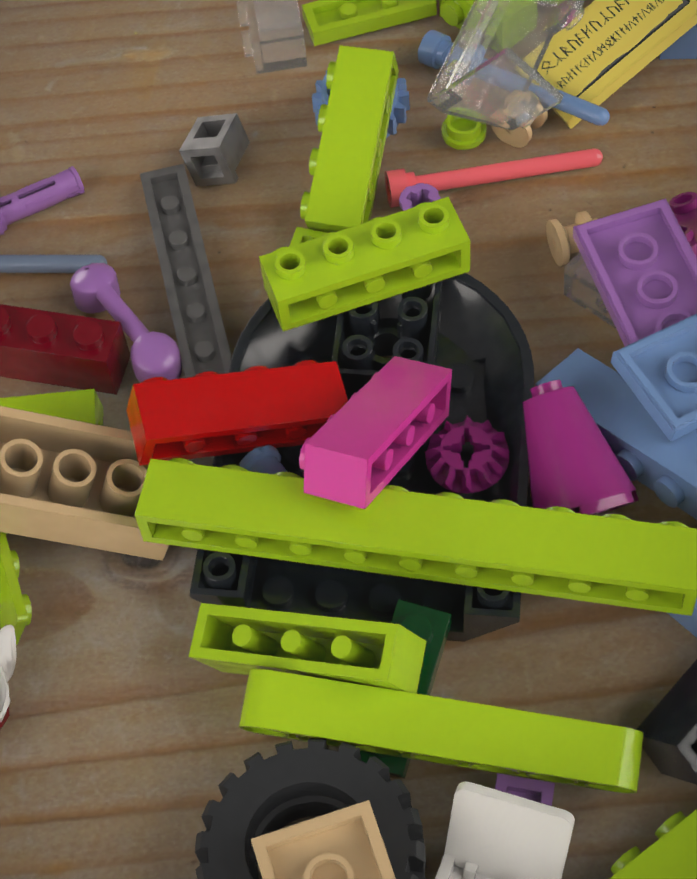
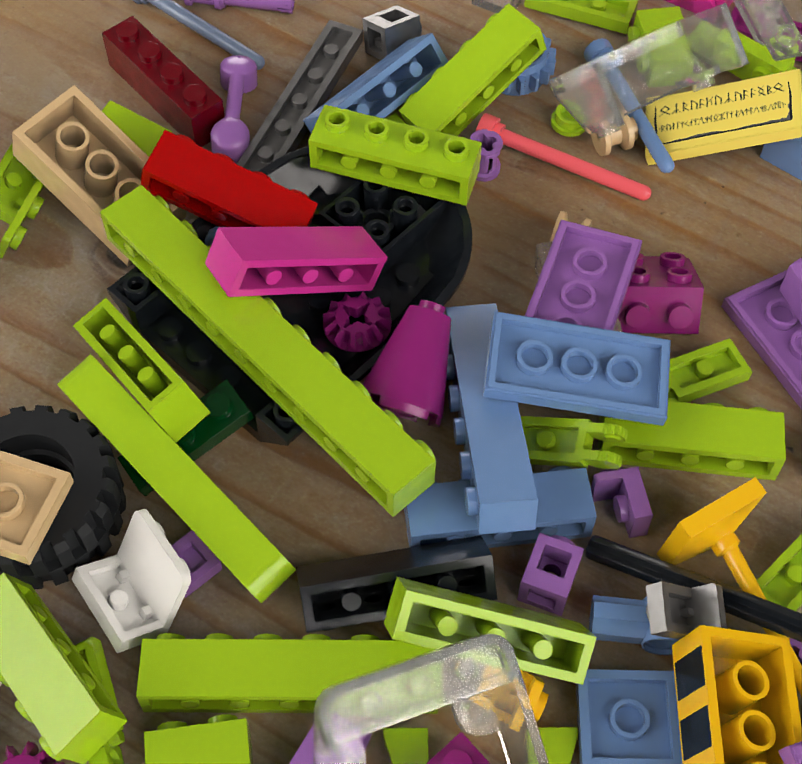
camera: 30 degrees right, 0 degrees up
(261, 212) = (389, 81): none -> medium blue brick

